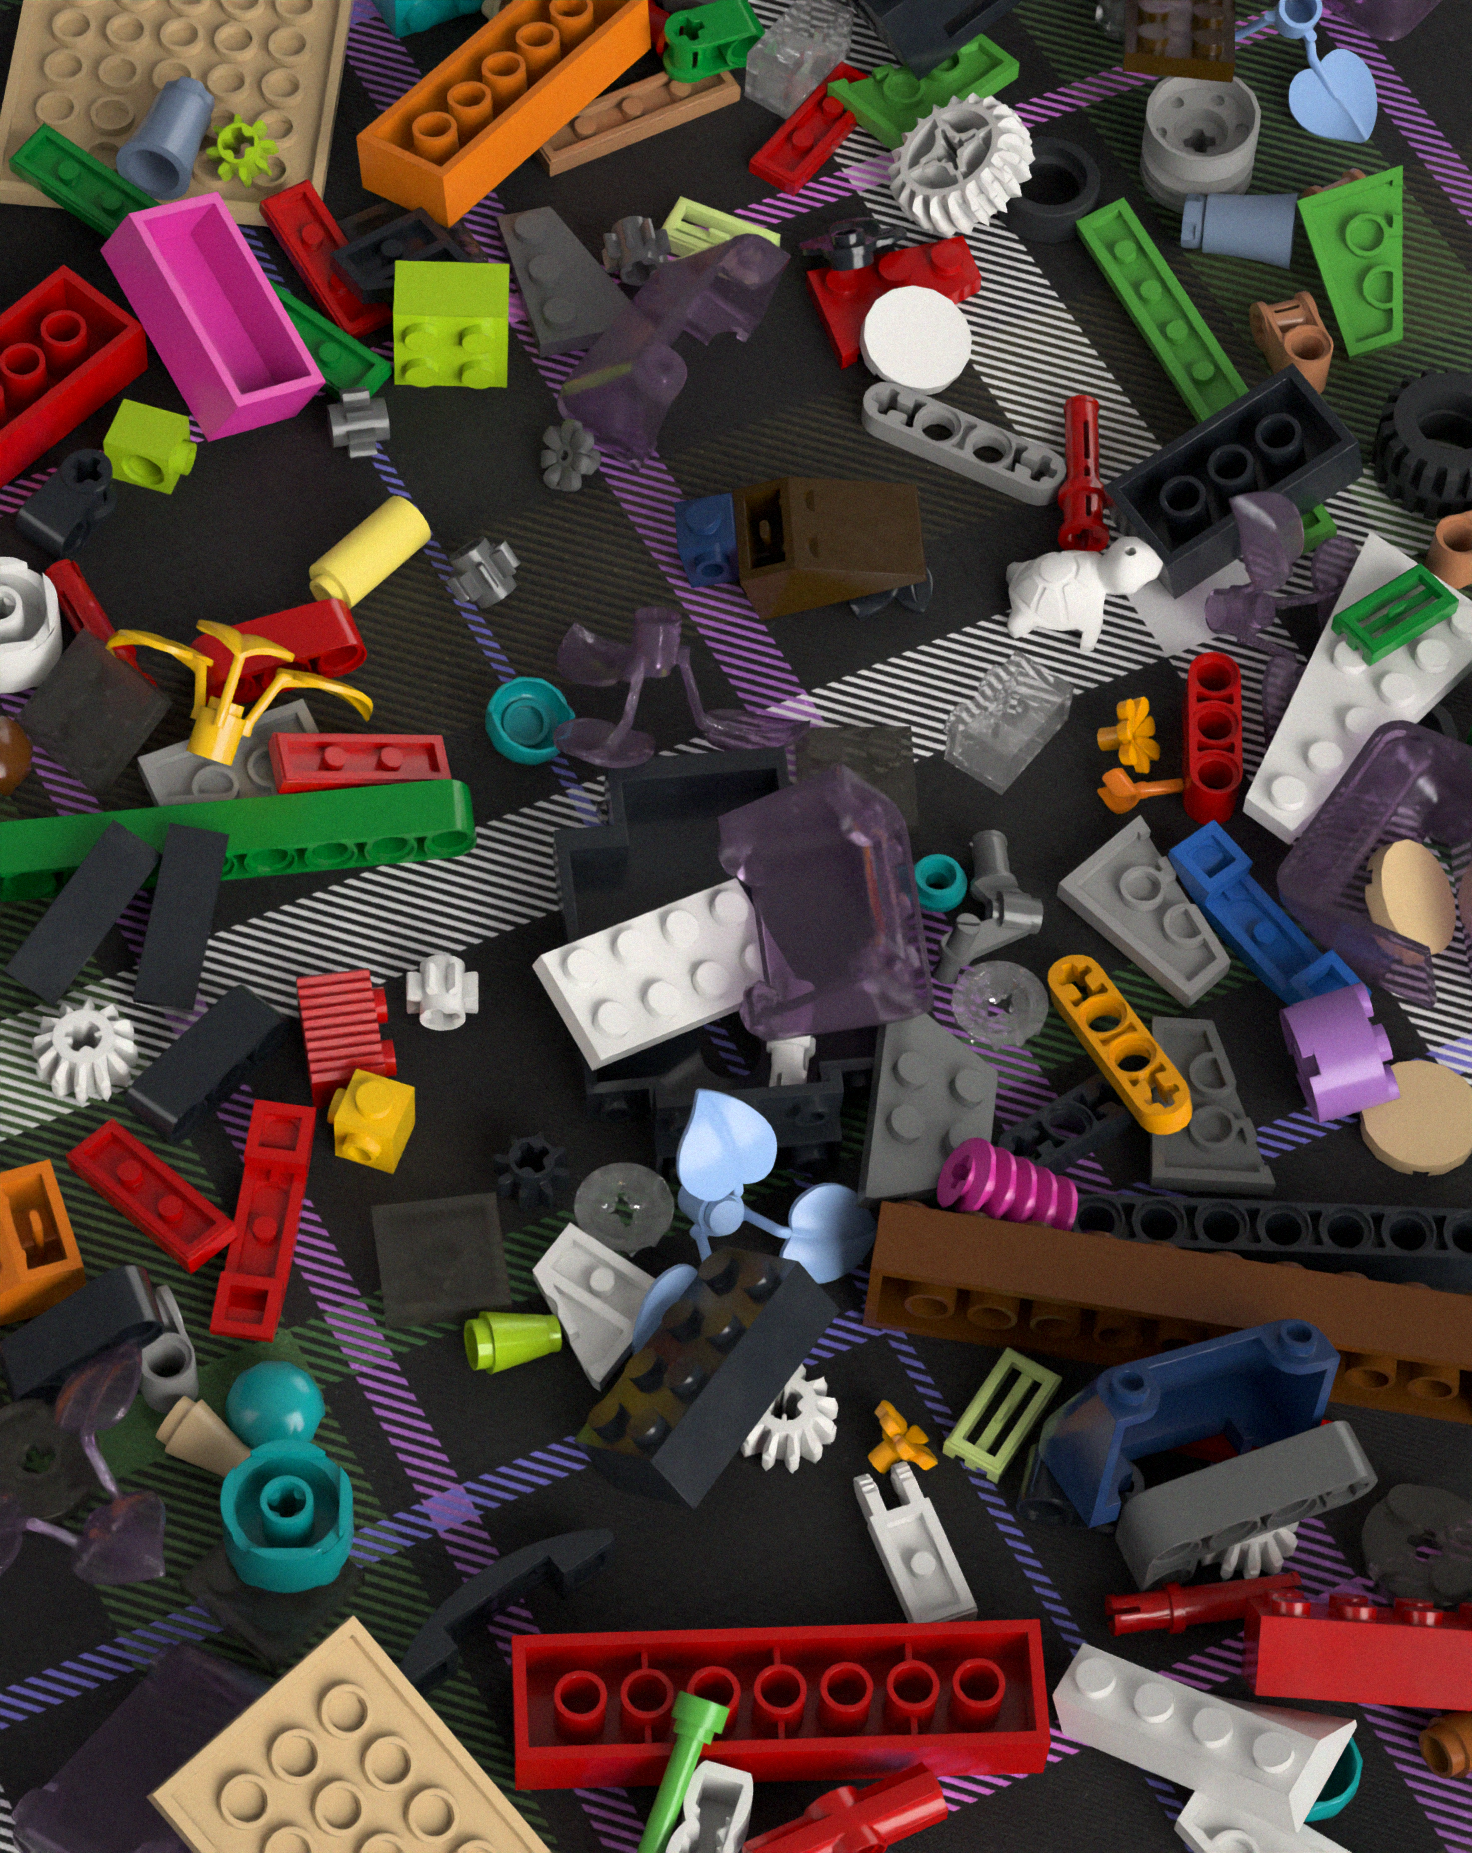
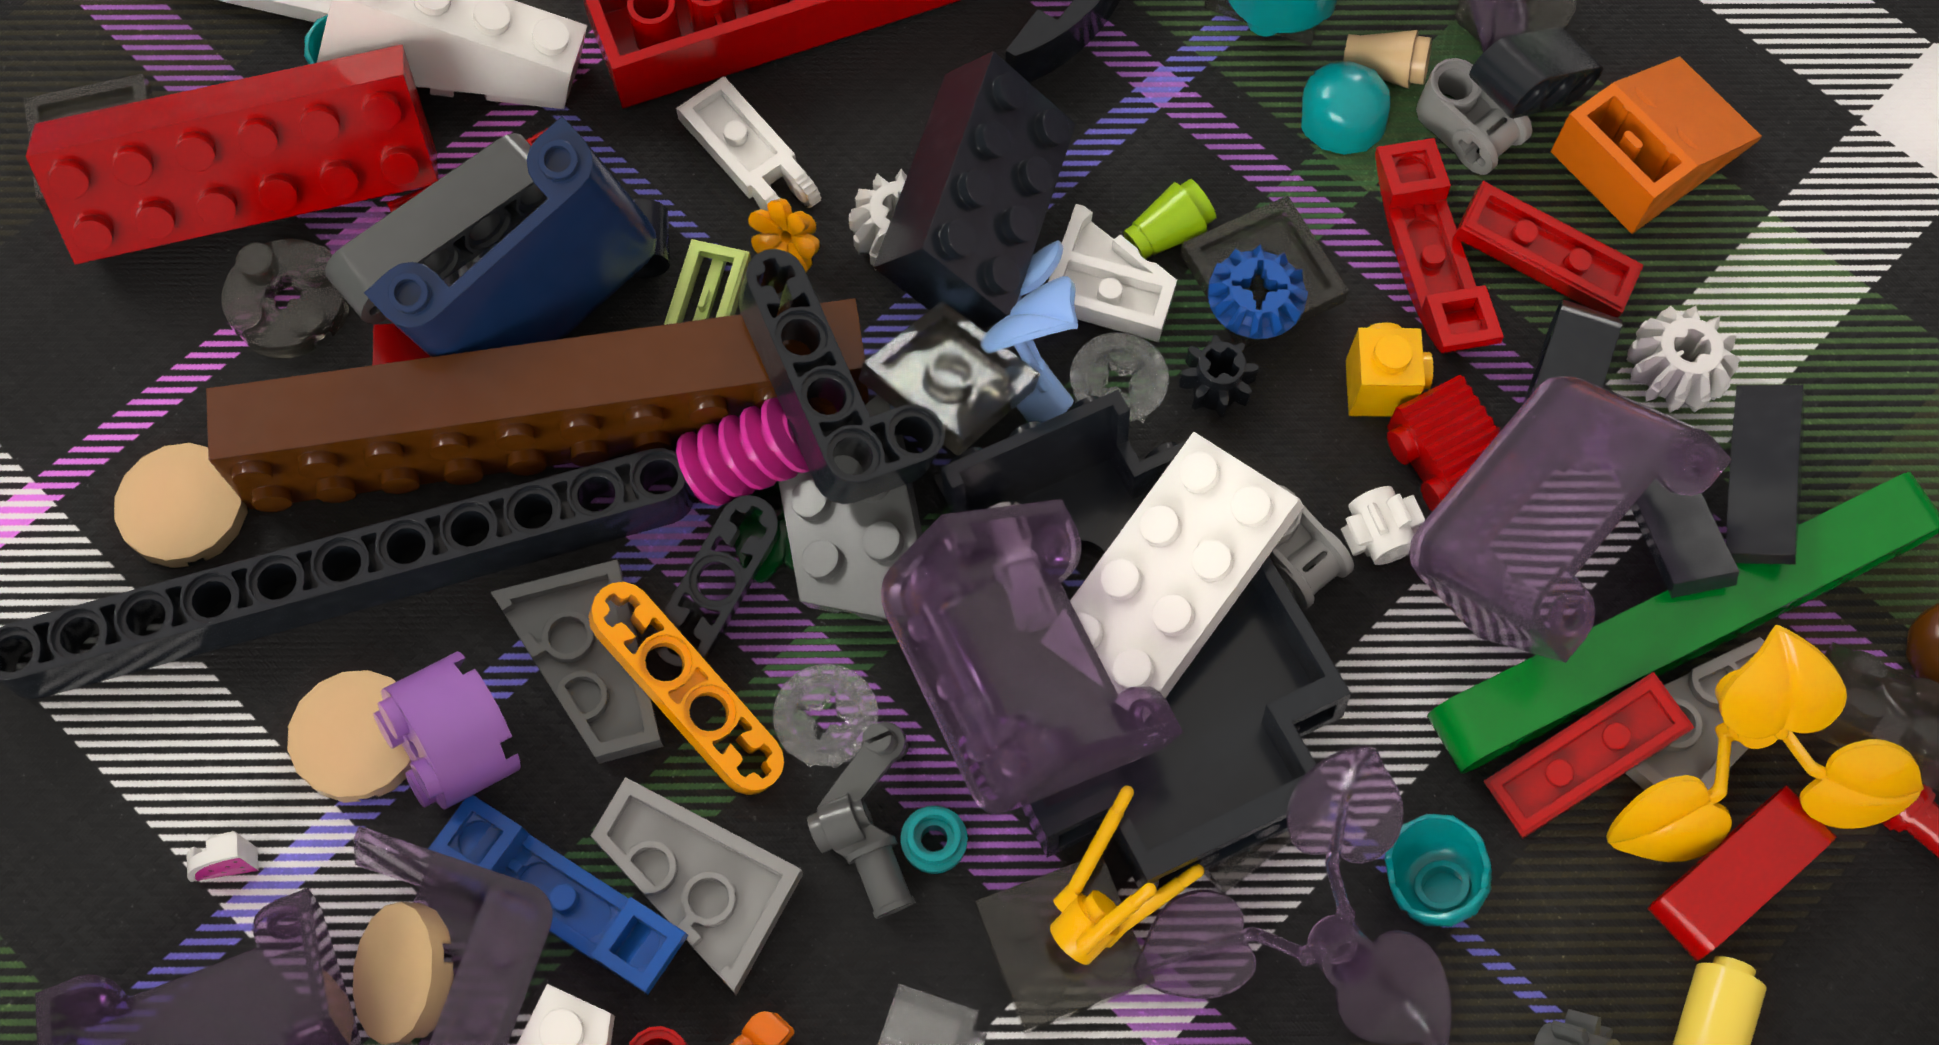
camera: 165 degrees right, 10 degrees up
(297, 908) = (1543, 502): none -> clear purple windscreen
(476, 1241) = (1236, 307): none -> blue gear
(528, 1009) = (1301, 548): none -> light grey piece
(814, 1187) = (946, 370): none -> clear smoke plate
(834, 745) = (1094, 920): none -> yellow plant
(906, 1118) = (827, 376): none -> black beam

